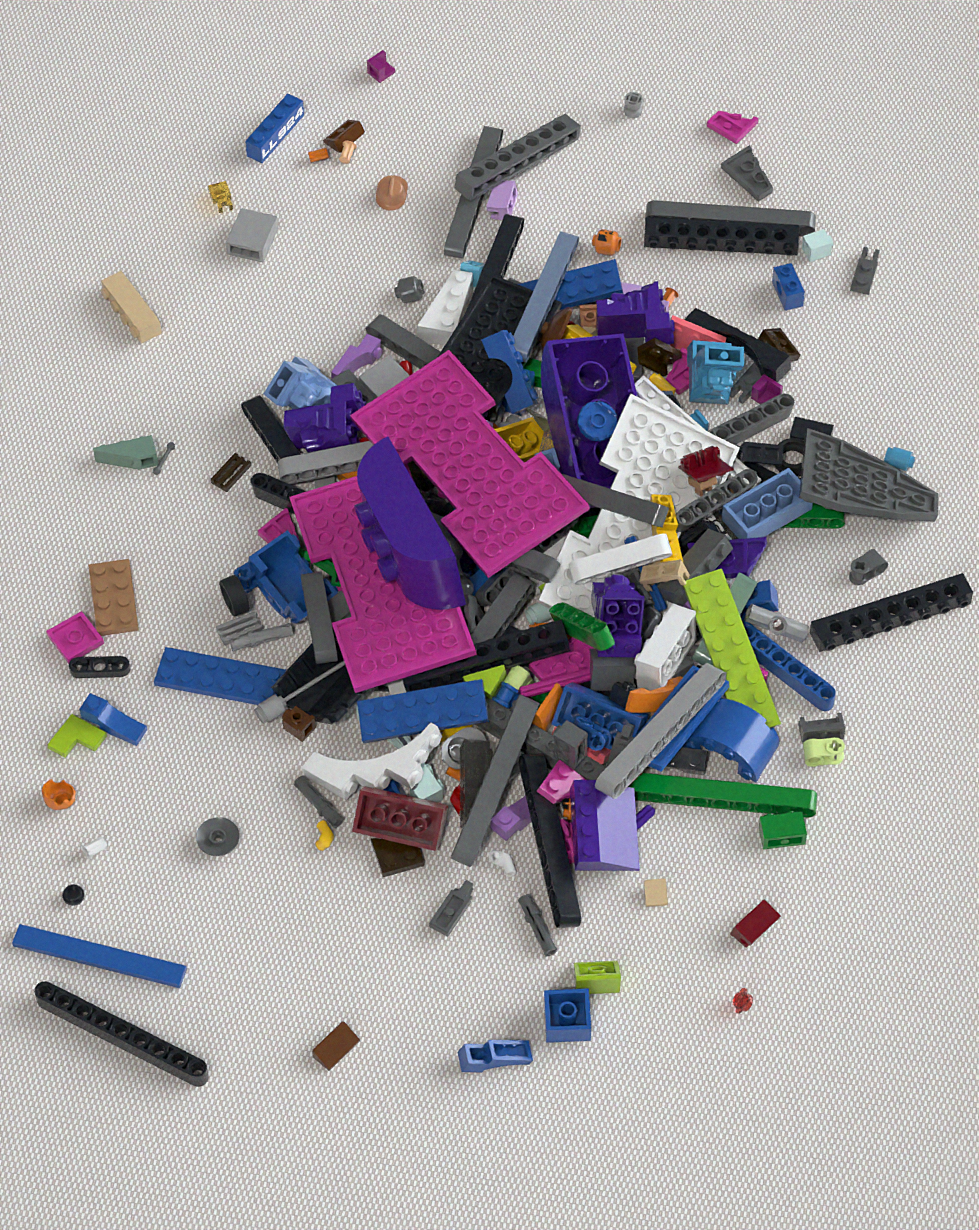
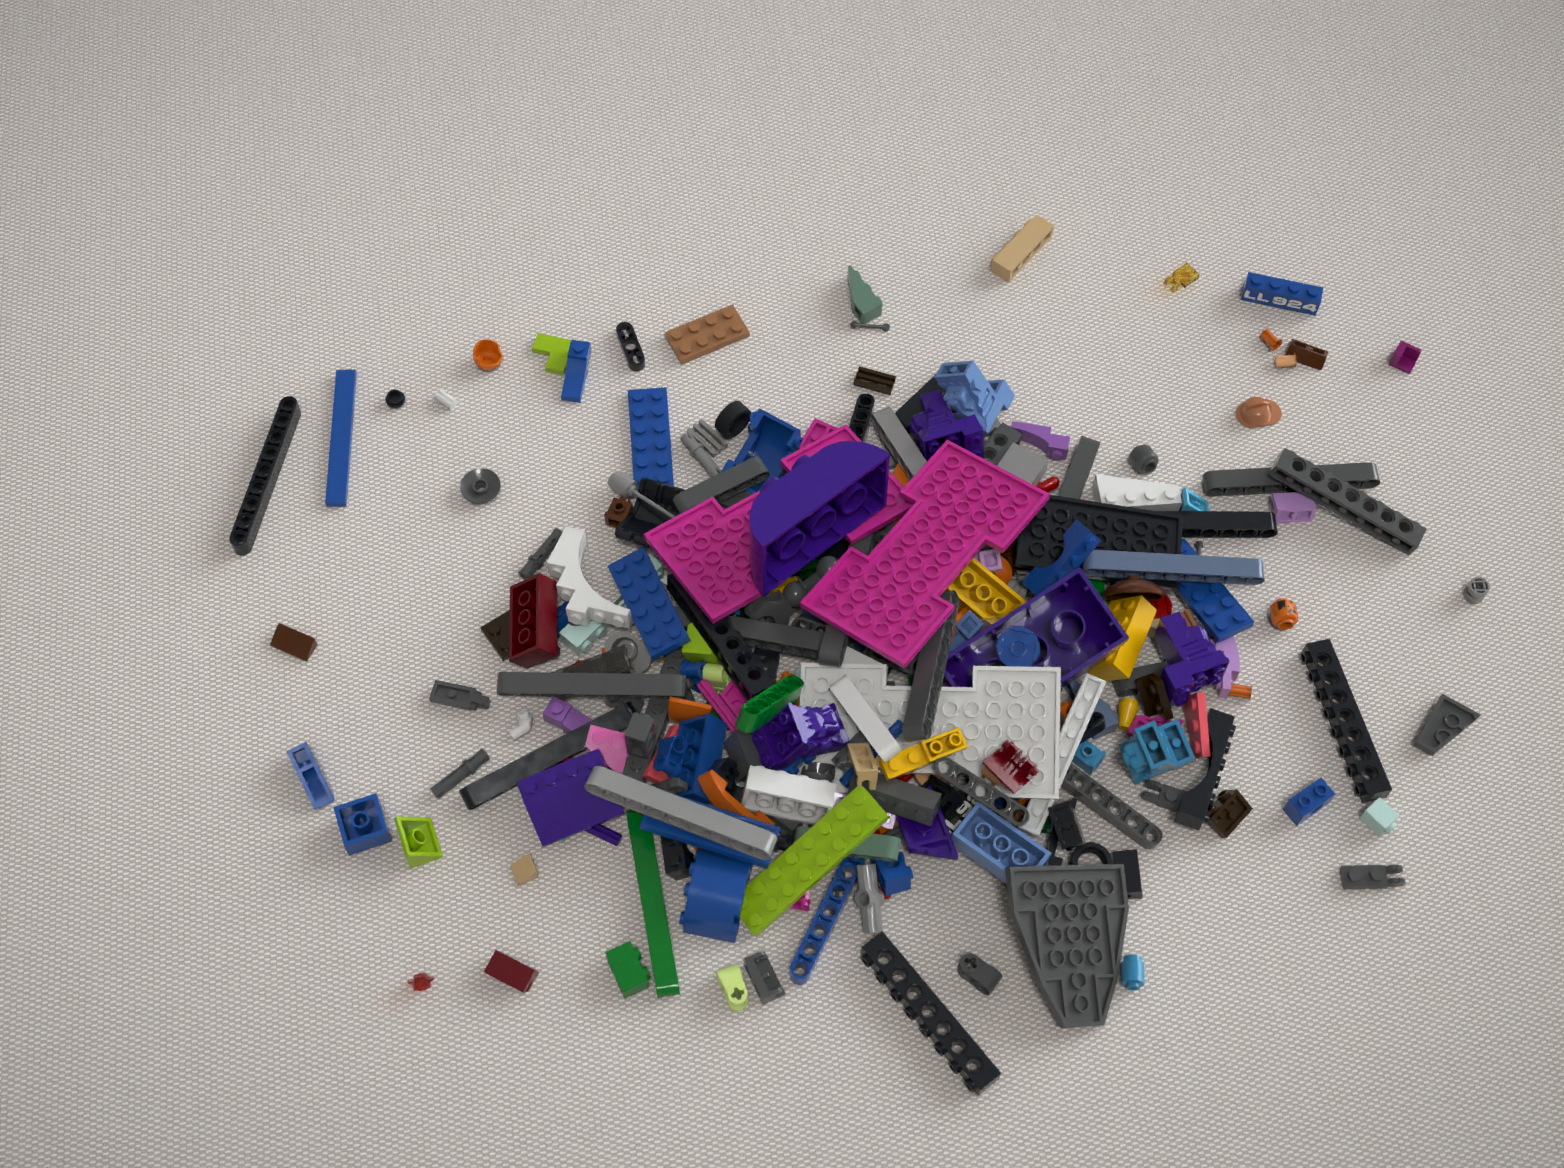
camera: 70 degrees right, 5 degrees up
(75, 637) = (653, 318): dark pink plate -> none
(252, 235) = (1148, 314): light grey brick -> none
(326, 836) = (507, 572): yellow arm -> none
(713, 212) = (1359, 679): dark grey beam -> none
(731, 125) = (1500, 692): dark pink wing -> none
(765, 389) = (1163, 815): magenta panel -> none

